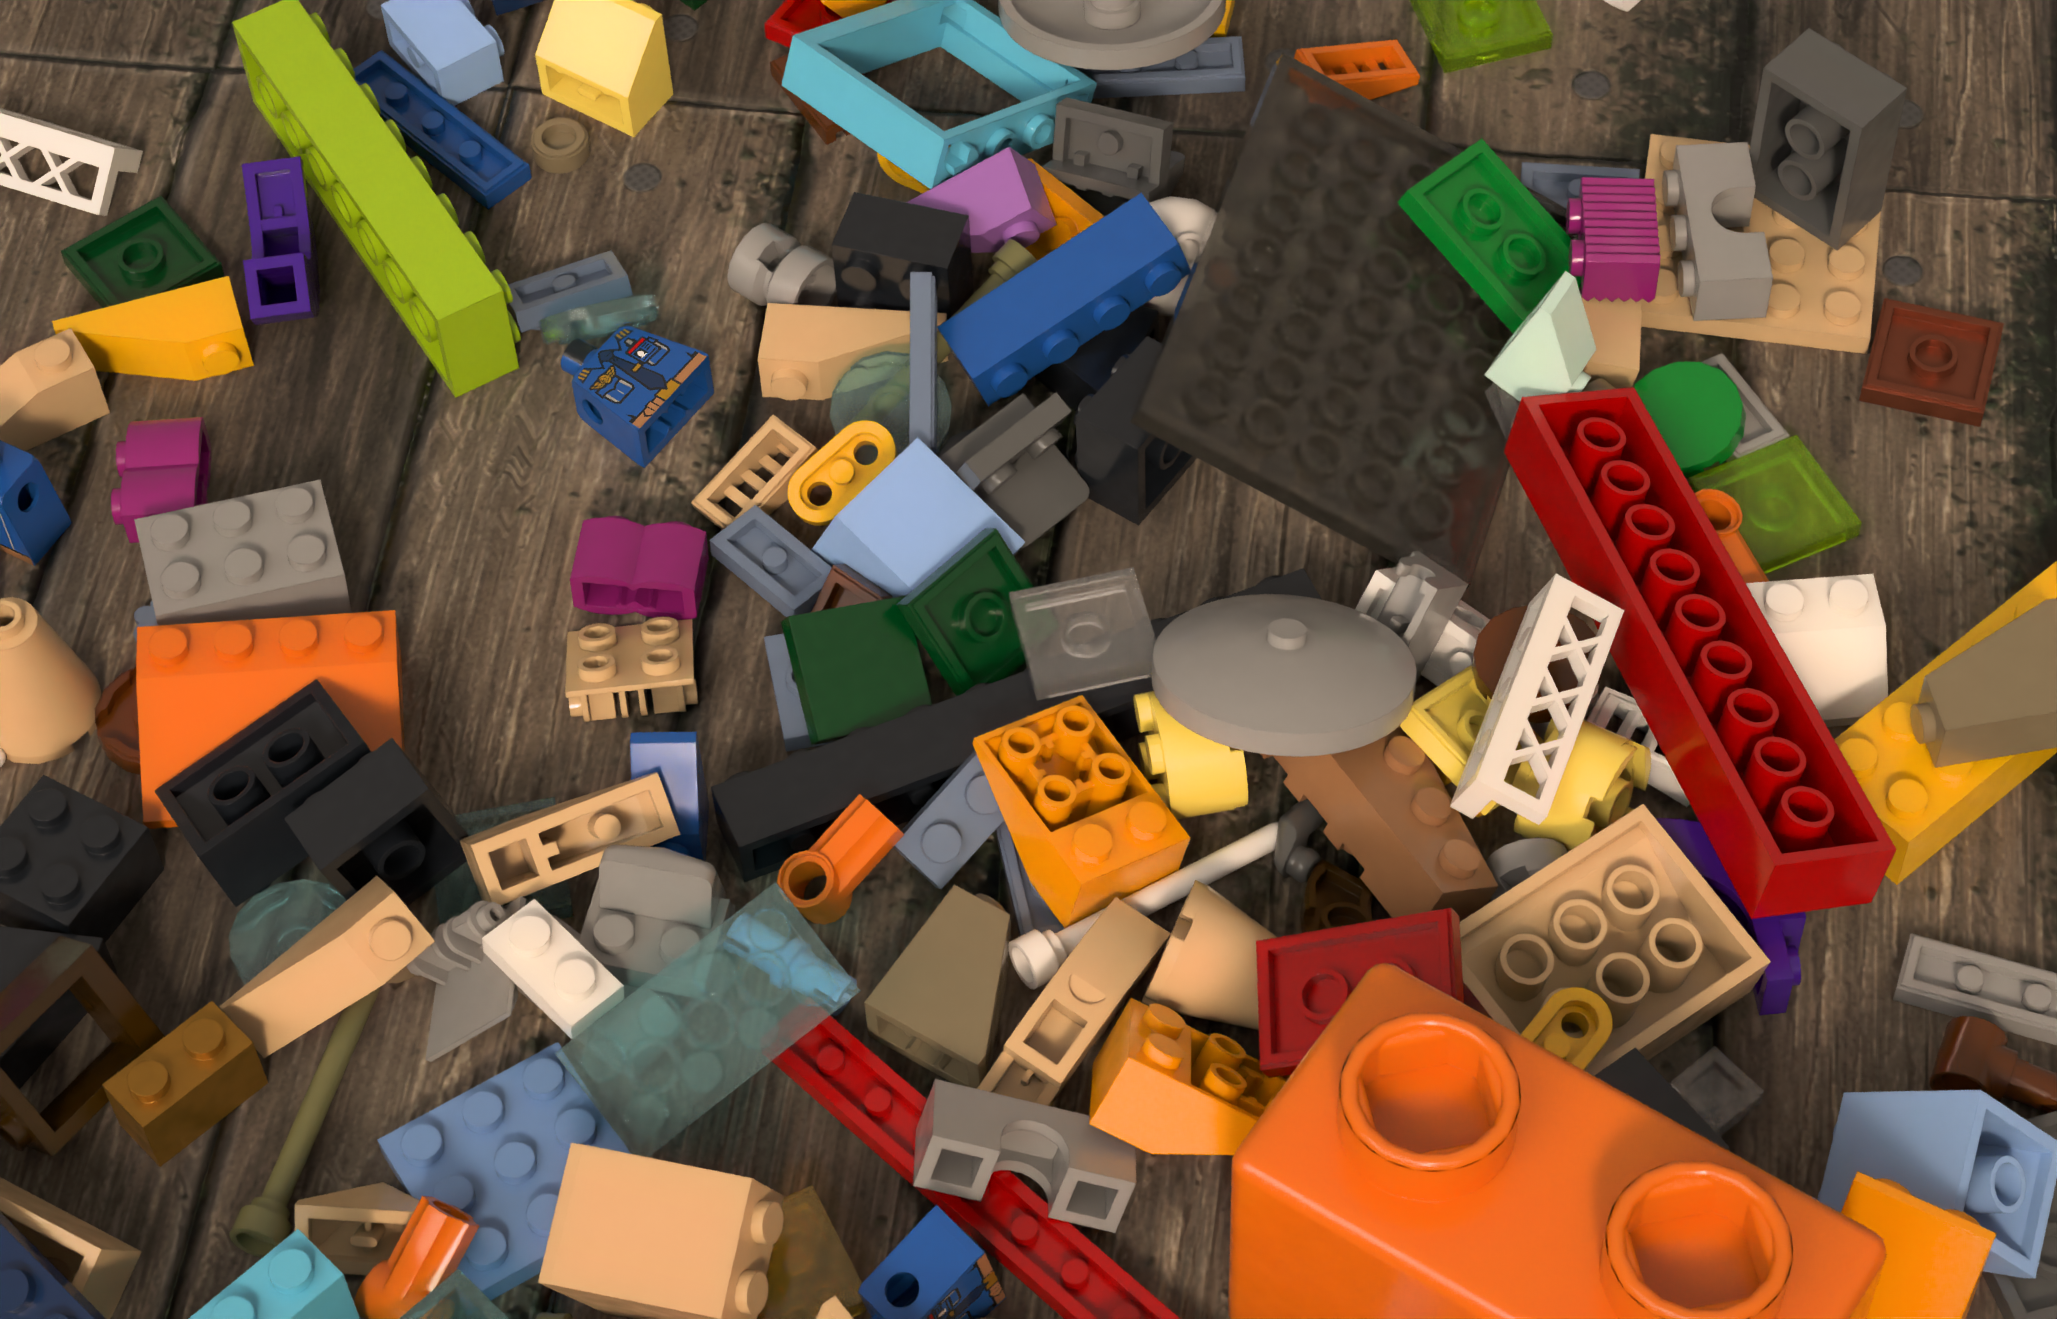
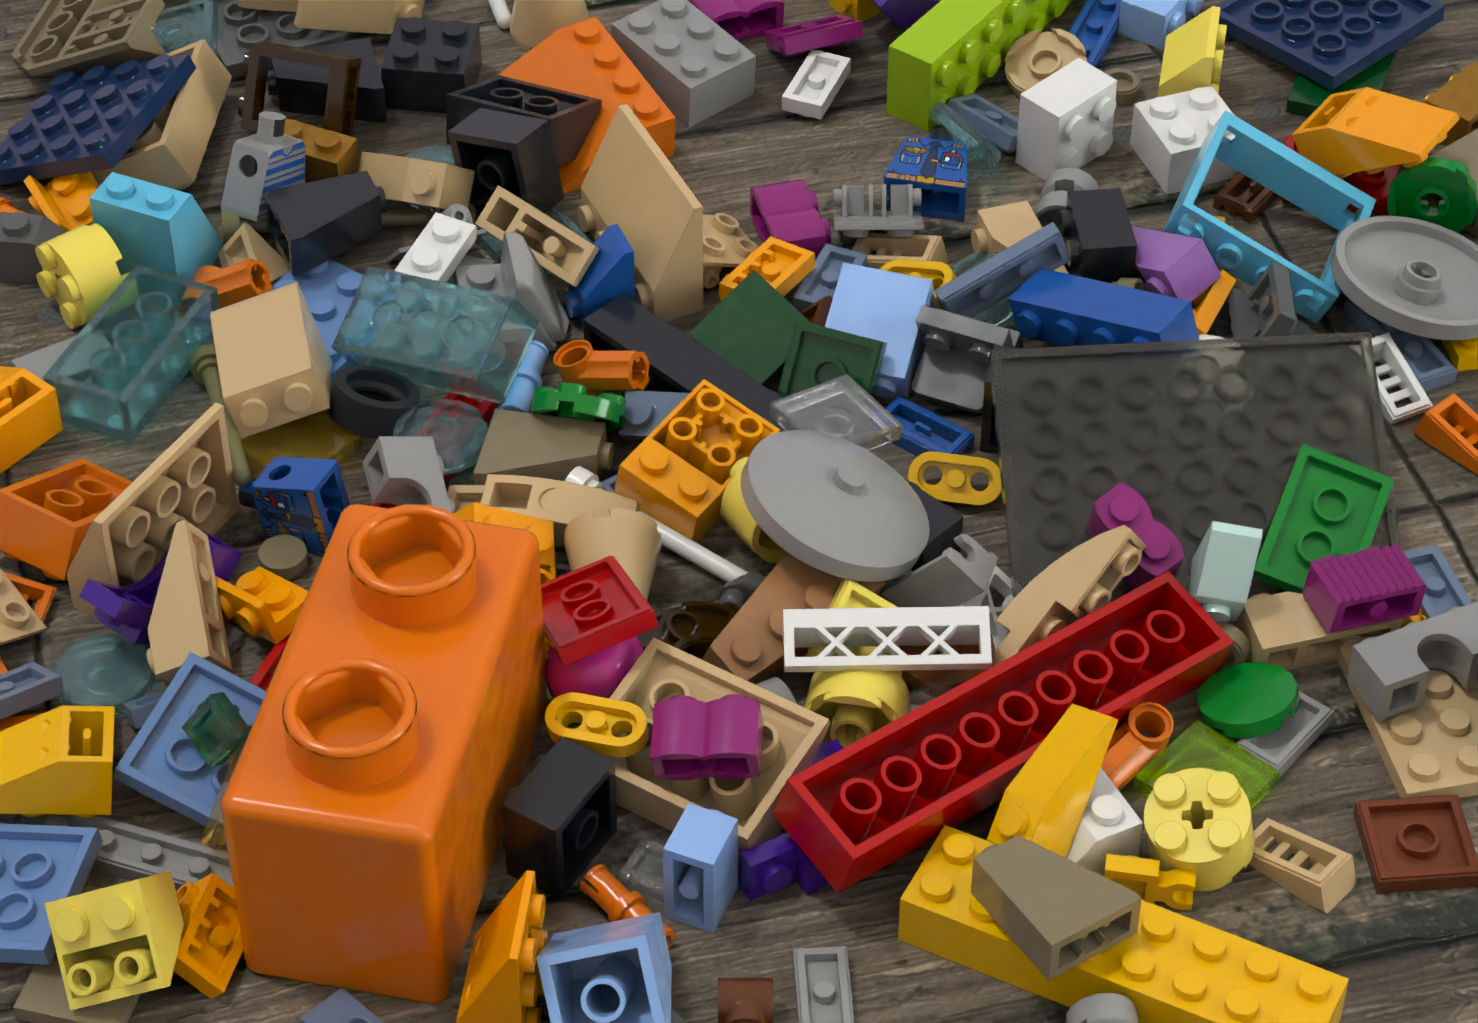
camera: 65 degrees right, 10 degrees down
(205, 1120) = (262, 164): none -> light grey torso
(278, 411) = (813, 34): none -> magenta plate
(354, 1103) = (323, 218): none -> black slope
(372, 445) = (816, 84): none -> white plate
(495, 194) = (1039, 56): none -> tan tile
(557, 700) = (655, 210): none -> tan slope
(643, 208) = (1066, 119): none -> white brick
(688, 466) = (898, 221): none -> light grey hinge
(722, 112) = (1171, 132): none -> white brick
(742, 616) = (777, 262): none -> light orange bracket
(761, 1114) = (371, 399): none -> black tyre
(871, 1085) = (455, 430): none -> clear light blue tile
(905, 914) = (572, 402): none -> green plate
(1086, 552) = (918, 437): none -> blue tile
(1189, 89) = (1395, 365): none -> white slope
(1198, 563) = (956, 477): none -> yellow plate
(1450, 410) = (1127, 507): none -> magenta brick
(1511, 493) = (1068, 588): none -> tan slope
(1637, 935) = (707, 738): none -> magenta brick
(1779, 1026) = (700, 867): none -> light blue brick
(1785, 1138) = (616, 898): none -> orange pin
(1813, 625) = (1055, 783): none -> yellow slope
(1884, 523) = (1200, 824): none -> light yellow brick
(1915, 623) = (1151, 884): none -> yellow plate
(1950, 438) = (1320, 886): none -> tan slope

